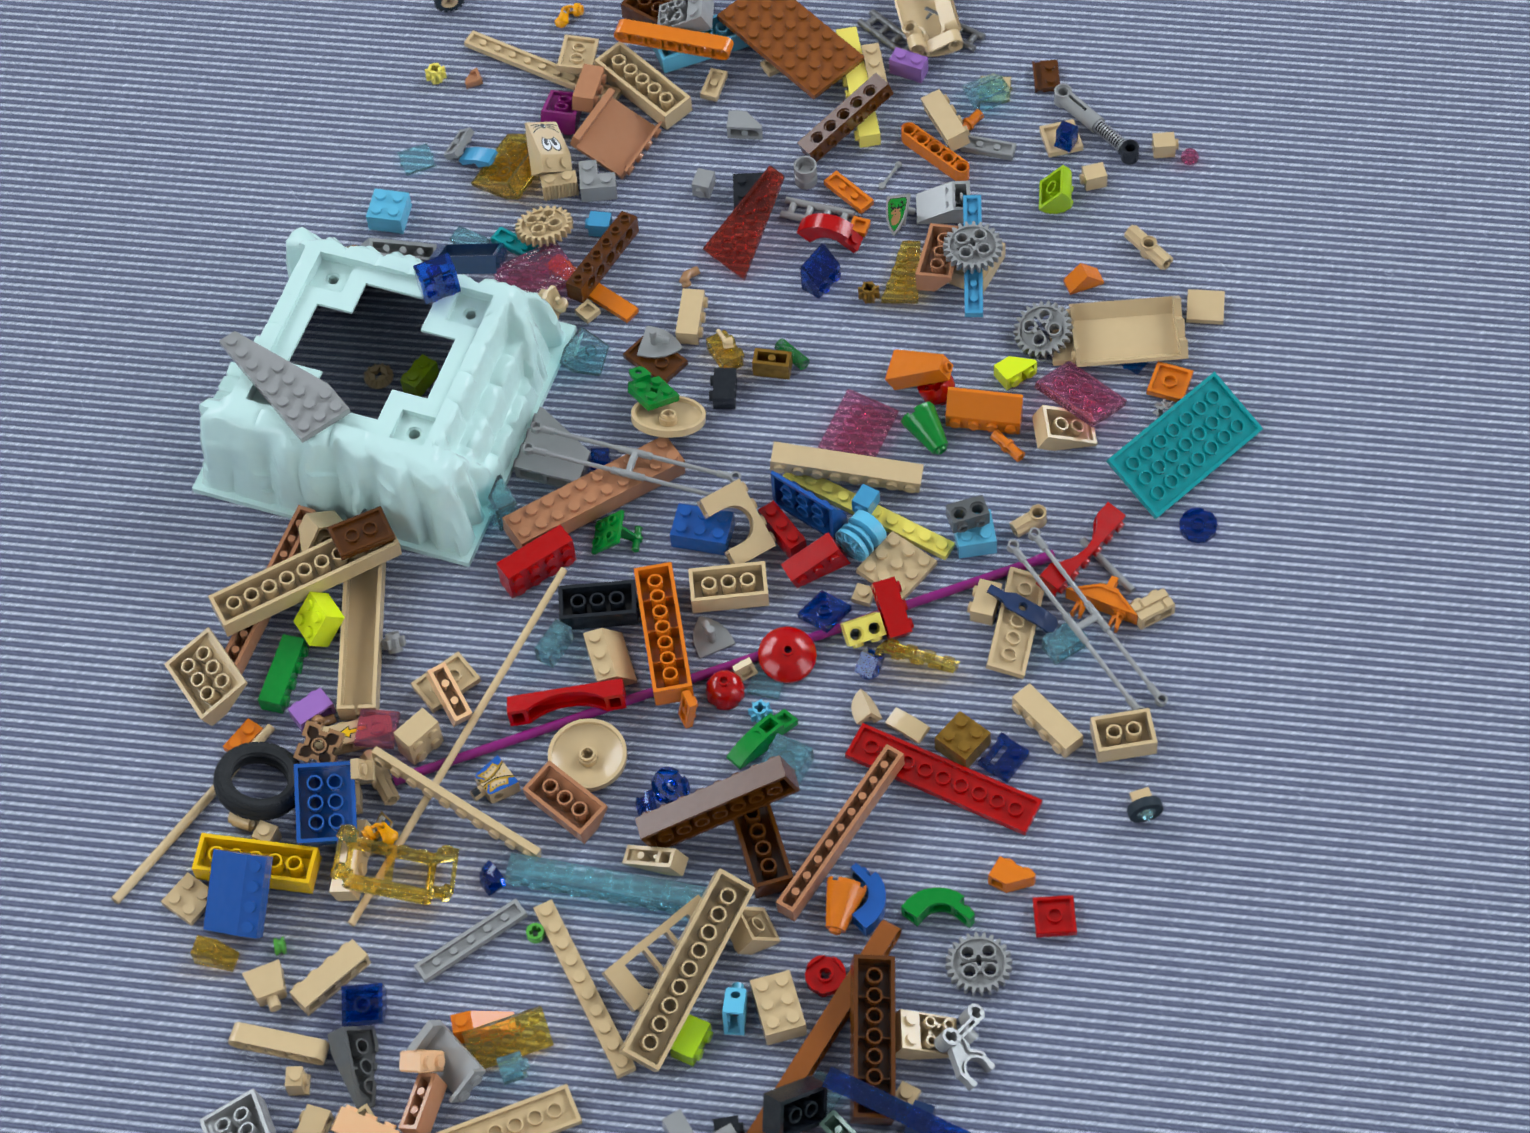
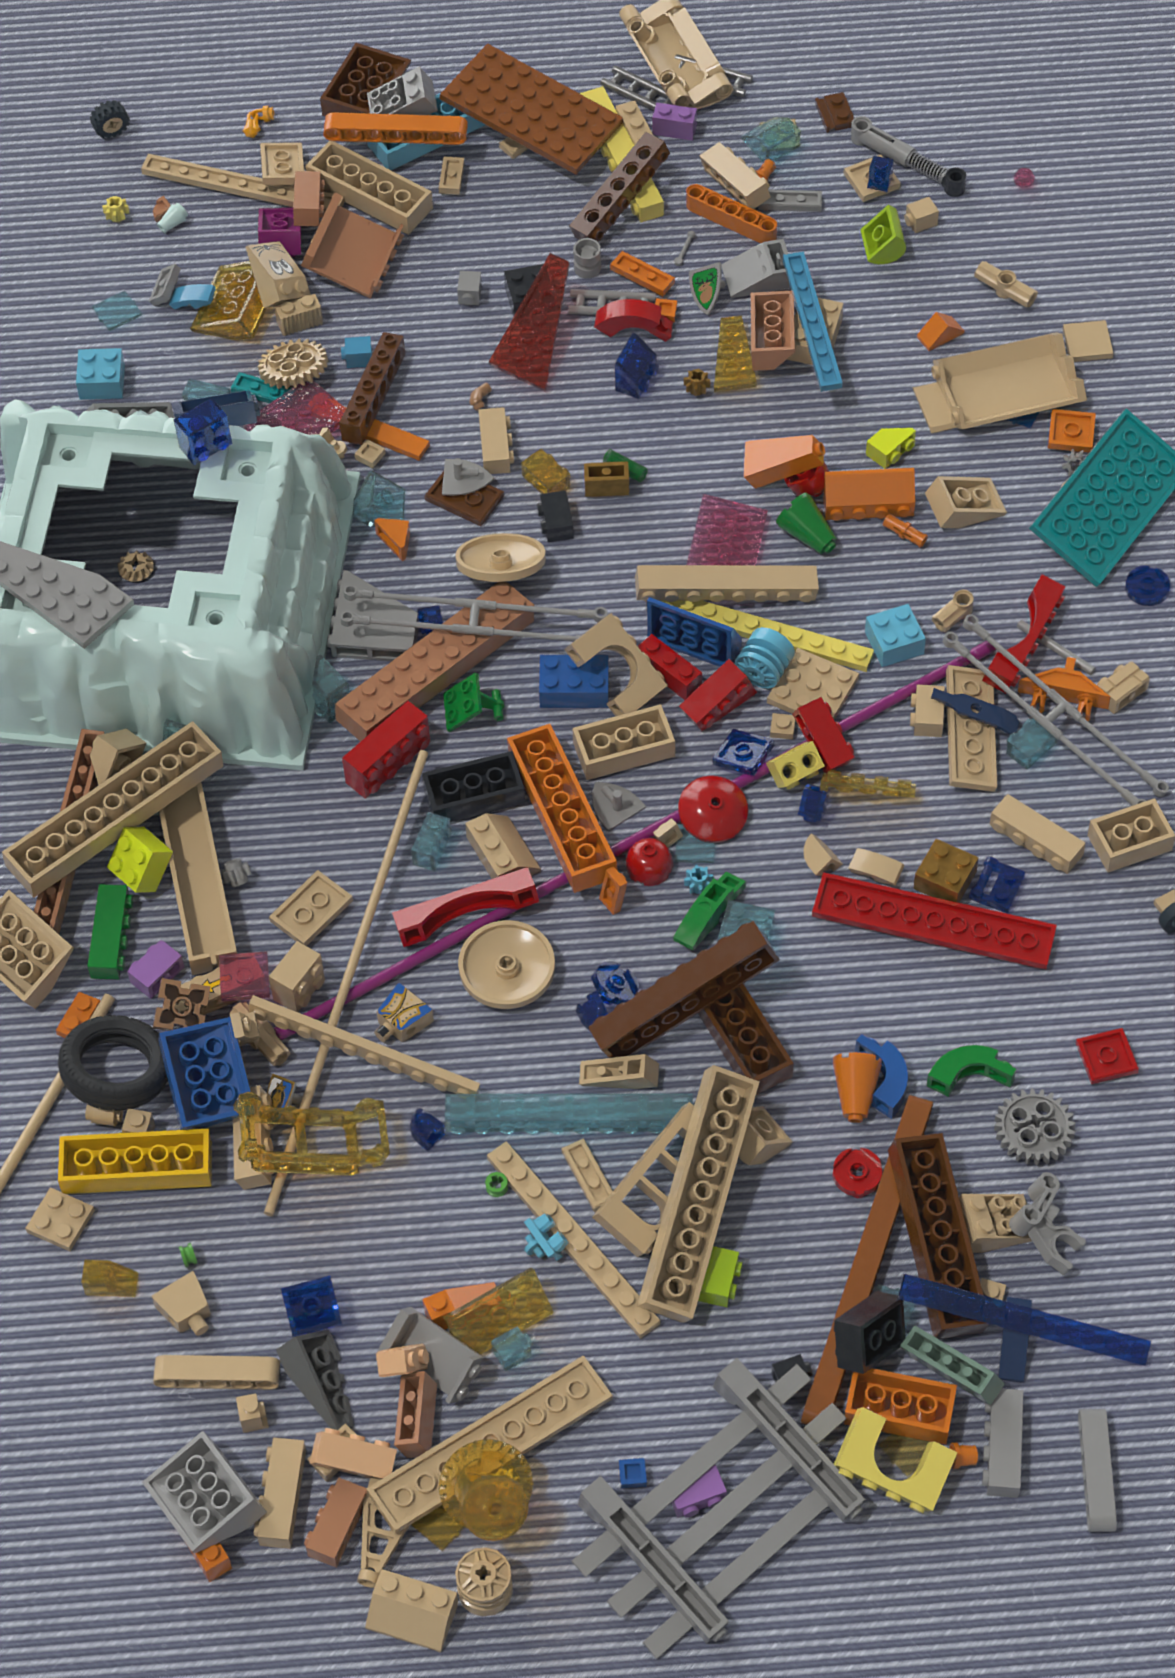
camera: 15 degrees left, 0 degrees up
(238, 893) = (122, 1201): blue slope -> none
(324, 721) = (180, 975): medium nougat arm -> none
(329, 977) = (259, 1281): tan brick -> none
(361, 533) = (172, 747): reddish brown tile -> none
(388, 835) = (293, 1098): light orange piece -> none
(420, 376) = (188, 554): lime brick -> none
(449, 694) = (322, 920): light nougat brick -> none
(470, 940) = (420, 1207): light grey plate -> none
(479, 87) = (174, 216): none -> light aqua cone
(557, 985) = (539, 1229): none -> medium azure hips
(565, 801) = (495, 1023): nougat slope -> none
(591, 383) = (394, 534): none -> orange slope
(596, 185) = (342, 309): light grey brick -> none
(609, 936) = (587, 1173): none -> tan tile
(650, 391) = (472, 532): green plate -> none
(727, 342) = (548, 462): tan hand -> none
(735, 1003) = (763, 1223): medium azure torso -> none
(743, 126) = (499, 216): light grey slope -> none
(778, 1007) = (813, 1219): tan brick -> none
(840, 832) = (833, 1003): nougat brick -> none
(866, 499) = (759, 615): dark azure brick -> none
(967, 511) = (886, 610): dark grey brick -> none
(972, 247) = (812, 310): light grey gear -> none
(1009, 876) = (1043, 1018): orange slope -> none
(1057, 320) = (926, 380): light grey gear -> none
(1080, 394) = (974, 458): clear pink plate -> none
(1164, 145) = (992, 168): tan brick -> none

